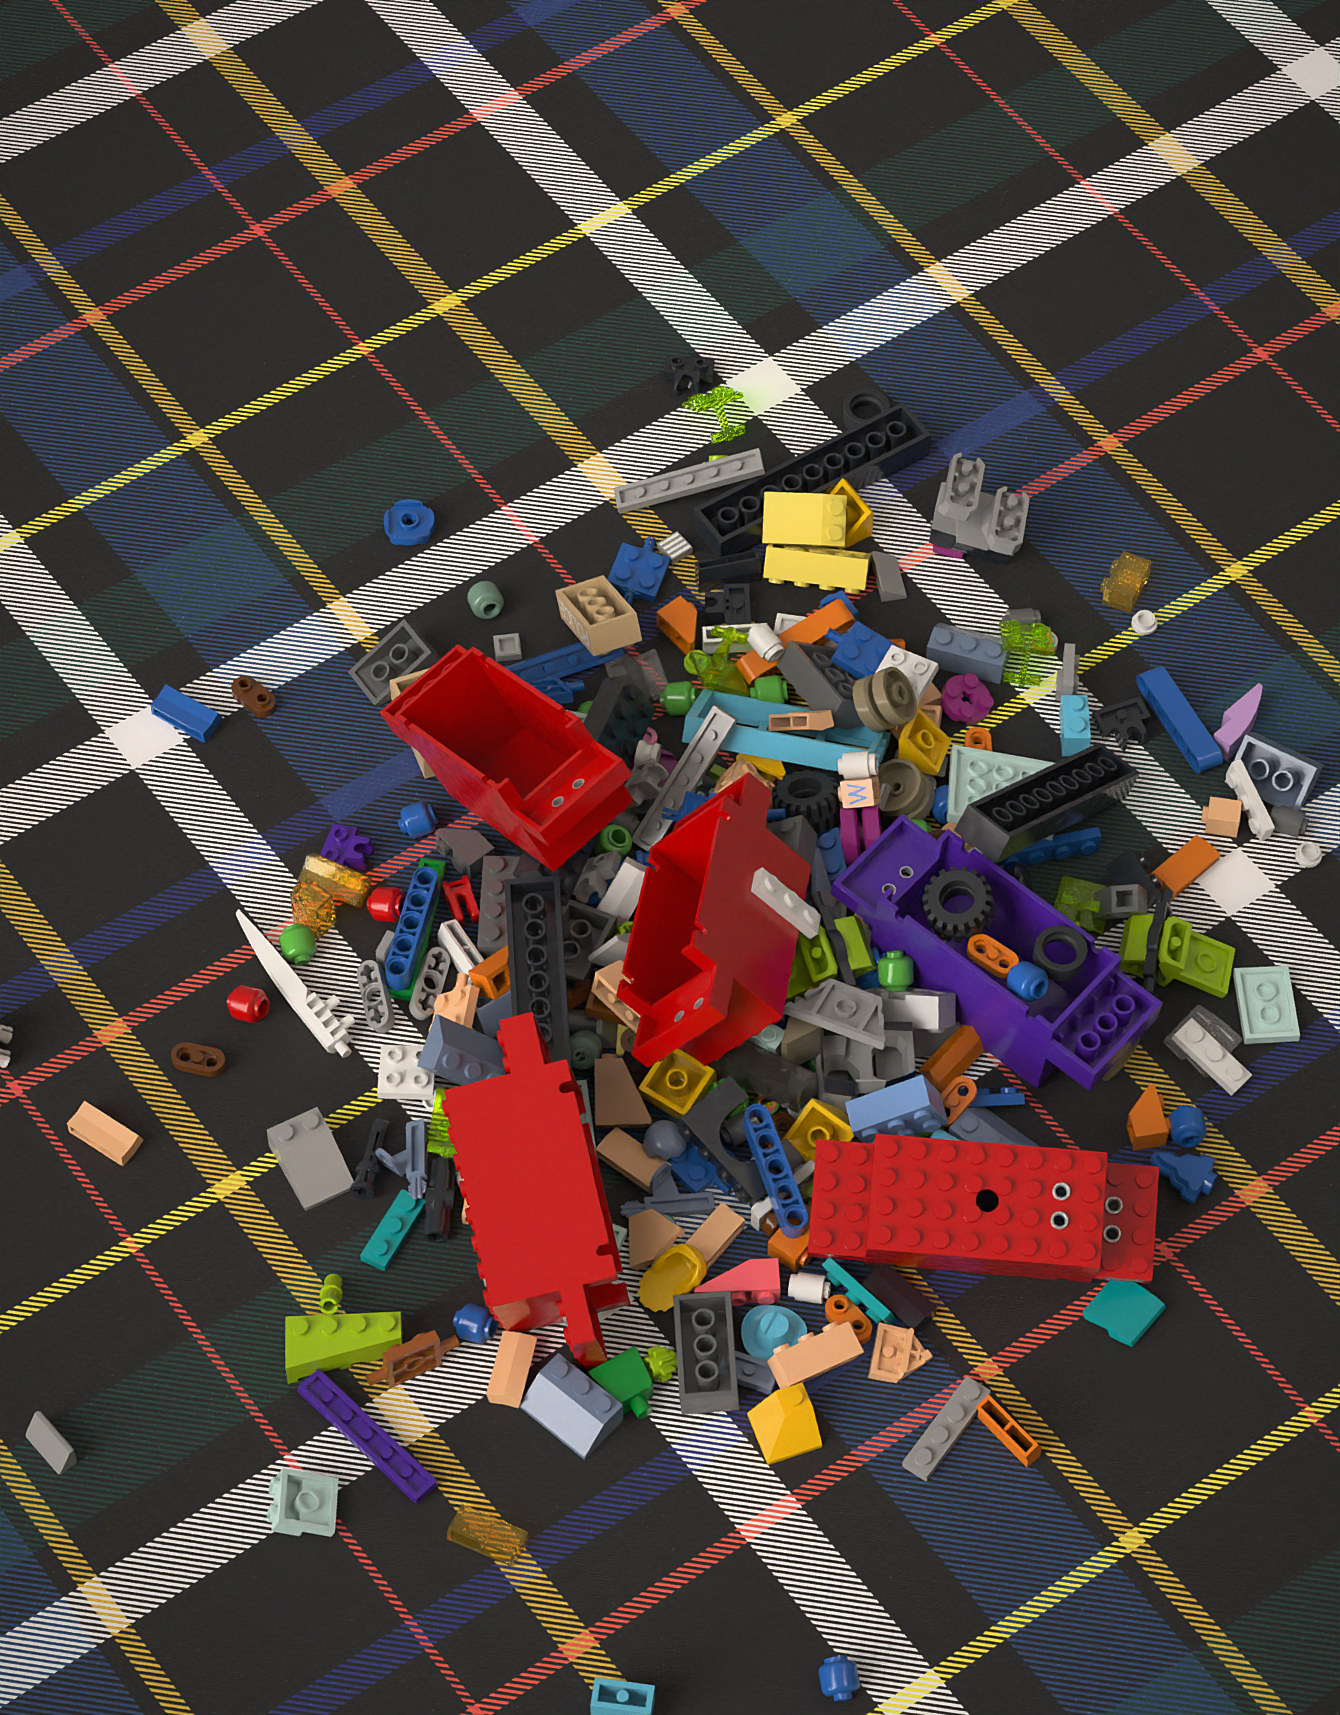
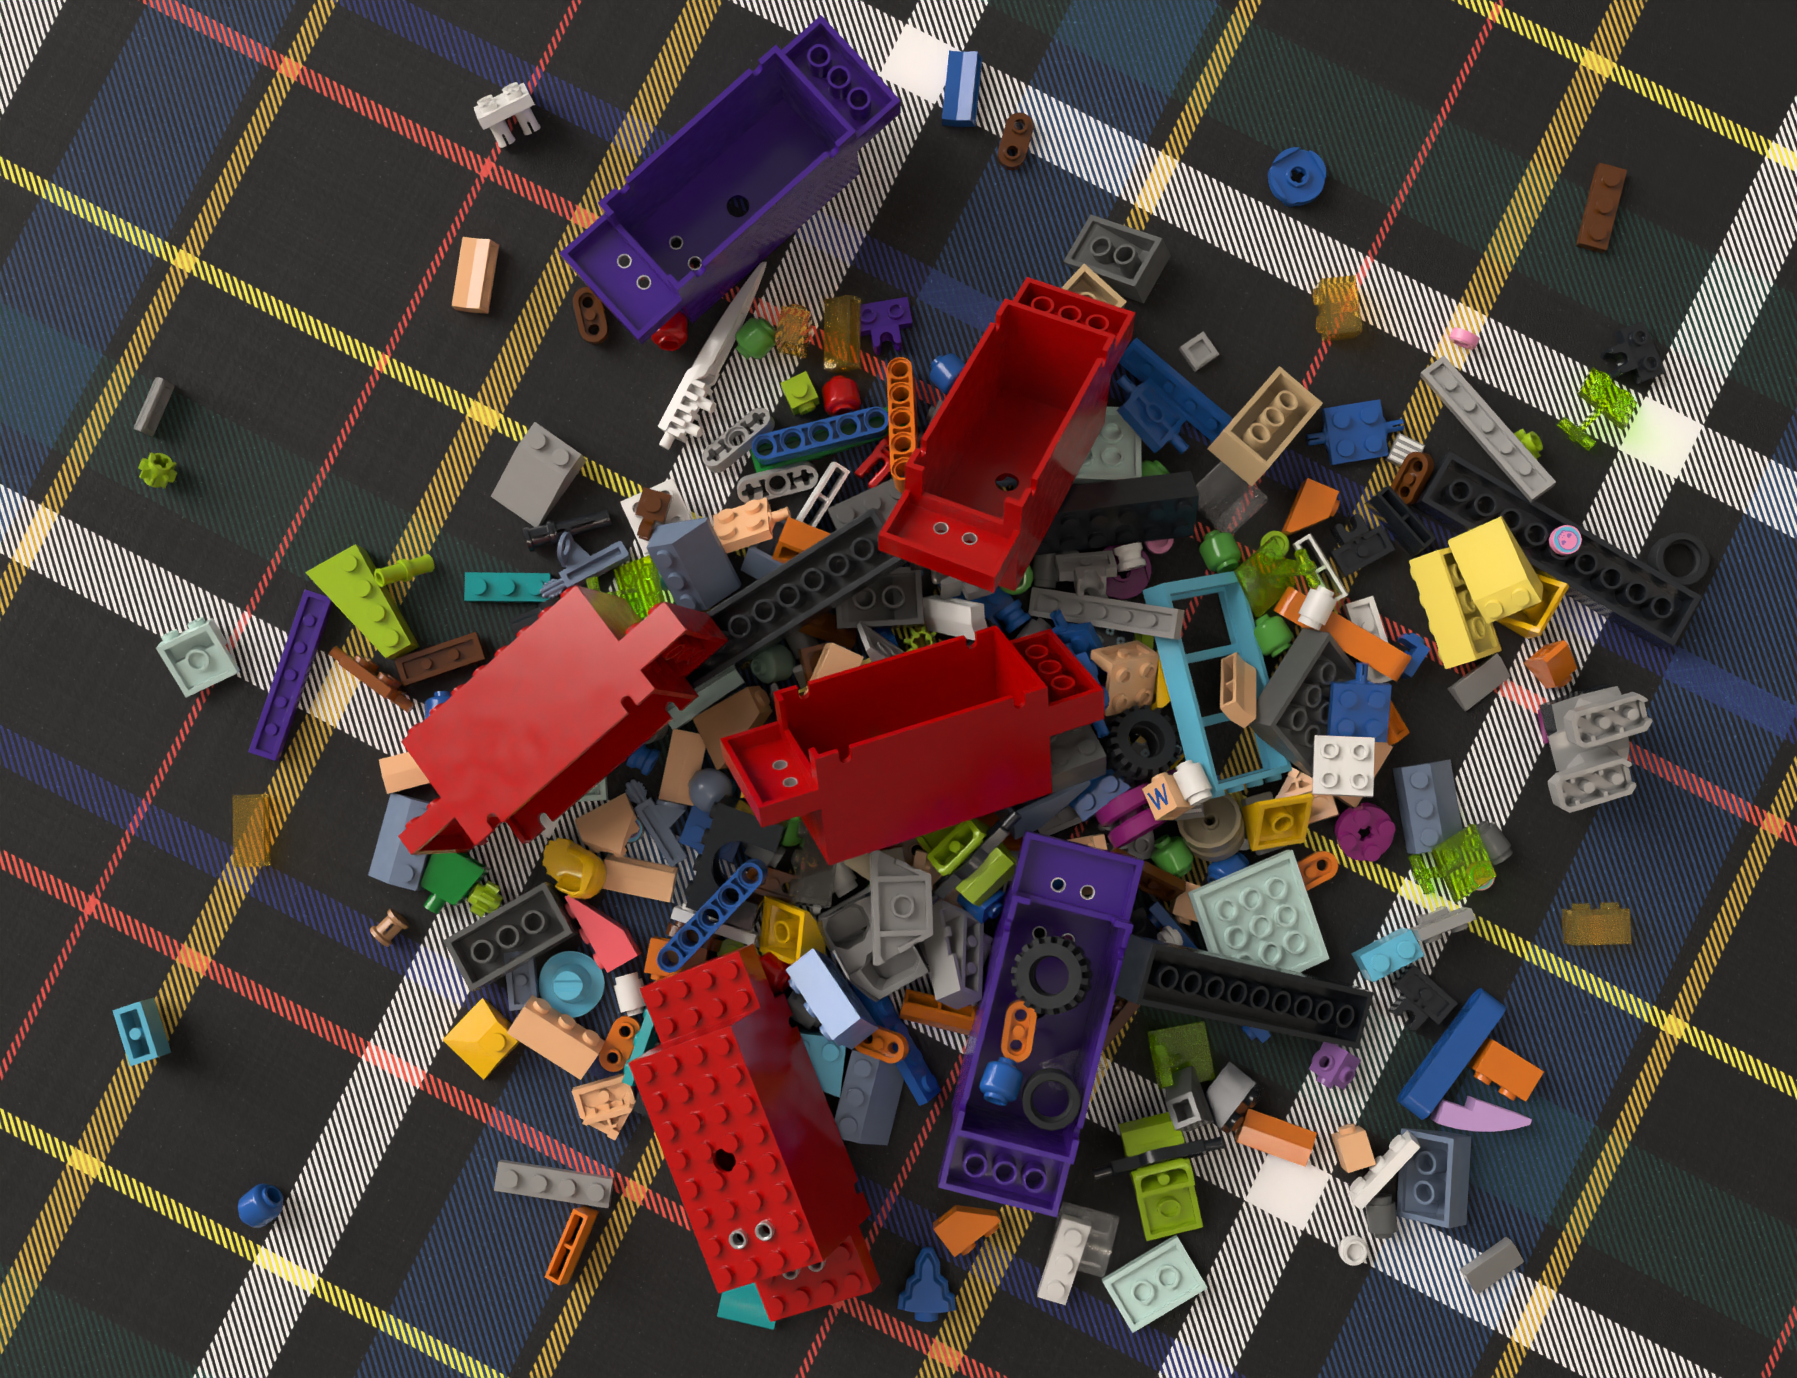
camera: 65 degrees right, 30 degrees up
(114, 1460) = (157, 470): none -> lime gear
(169, 854) = (771, 137): none -> dark purple piece
(366, 931) = (800, 394): none -> lime brick
(384, 948) = (791, 420): light grey tile -> none
(401, 1064) = (652, 508): none -> reddish brown plate
(426, 1301) = (440, 659): none -> reddish brown plate
(448, 861) = (901, 413): none -> orange beam
(485, 600) = (1239, 302): sand green head -> none
(532, 539) = (1337, 308): none -> clear yellow brick
(560, 346) = (1601, 208): none -> reddish brown plate
(608, 470) = (1464, 338): none -> bright pink tile
(612, 1184) = (643, 759): none -> blue wheel
(642, 1456) = (380, 932): none -> medium nougat bush
(697, 549) = (1411, 477): none -> reddish brown plate
(786, 902) = (970, 800): white plate -> none
(807, 464) = (1565, 540): none -> tile
(884, 699) = (1295, 766): dark tan wheel -> none
(895, 971) = (978, 929): bright green head -> none
(901, 520) = (1552, 664): none -> orange slope
(1144, 622) = (1555, 964): white plate -> none
(1146, 798) = (1334, 1066): none -> medium lavender brick
(1187, 1126) = (976, 1268): blue head -> none
(1211, 688) = (1505, 1069): none -> orange brick

